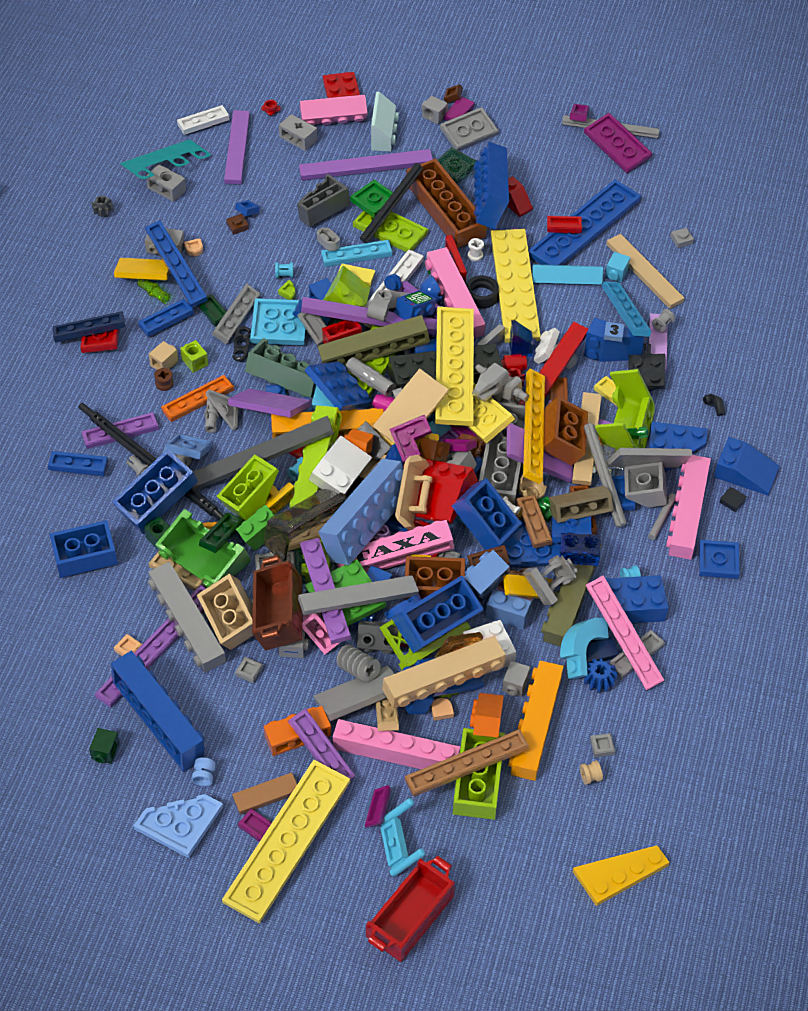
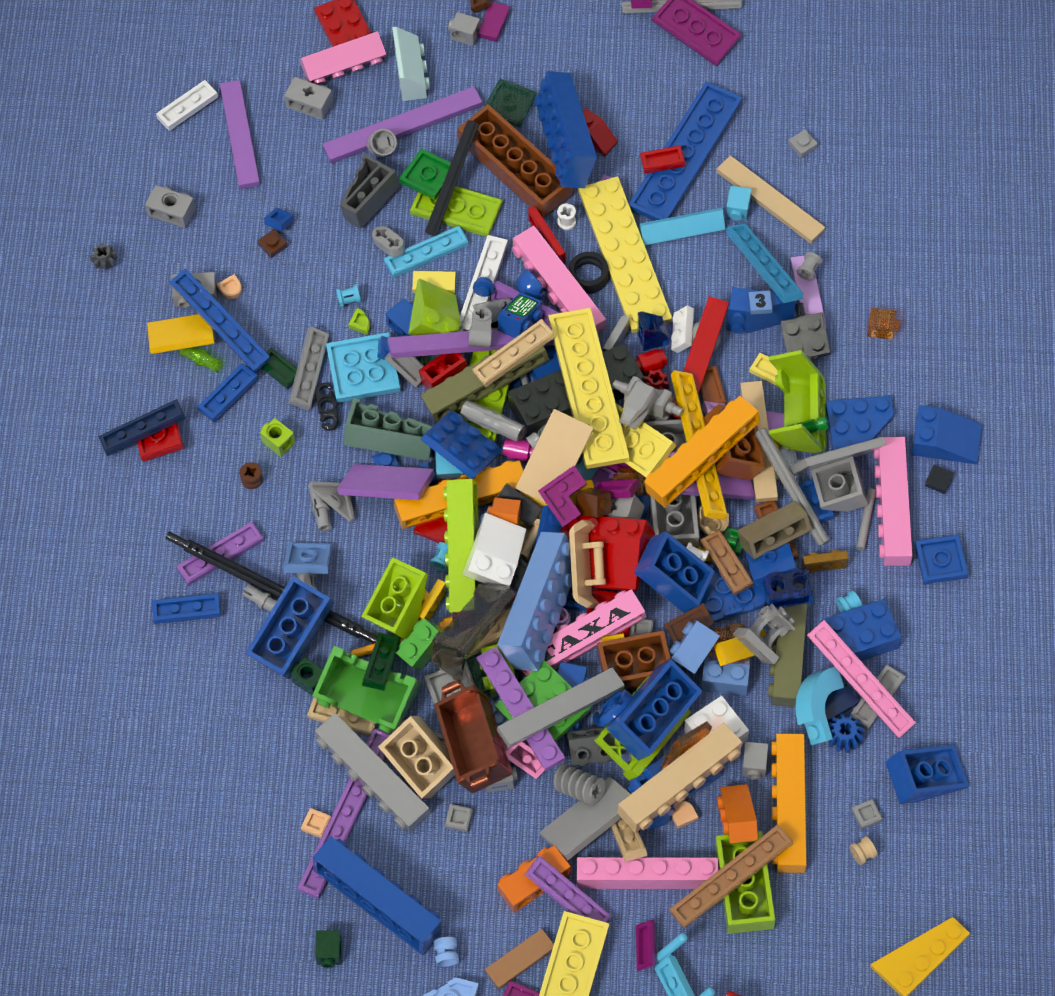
camera: 10 degrees left, 10 degrees up
(83, 548) = (229, 717): blue brick -> none
(163, 356) = (242, 446): tan brick -> none
(168, 153) = (159, 165): teal piece -> none
(195, 398) = (296, 490): orange tile -> none
(267, 451) = (400, 548): dark grey tile -> none
(270, 107) = (263, 64): red plate -> none
(344, 170) = (381, 143): none -> light grey wheel
(400, 327) = (513, 353): none -> tan tile
(469, 129) = (513, 47): light grey tile -> none
(533, 425) = (701, 451): none -> light orange brick
(619, 539) = (828, 561): none -> pearl gold plate
(663, 722) = (926, 773): none -> blue slope
(713, 374) = (882, 323): none -> clear orange brick
(715, 401) = (892, 358): black arm -> none

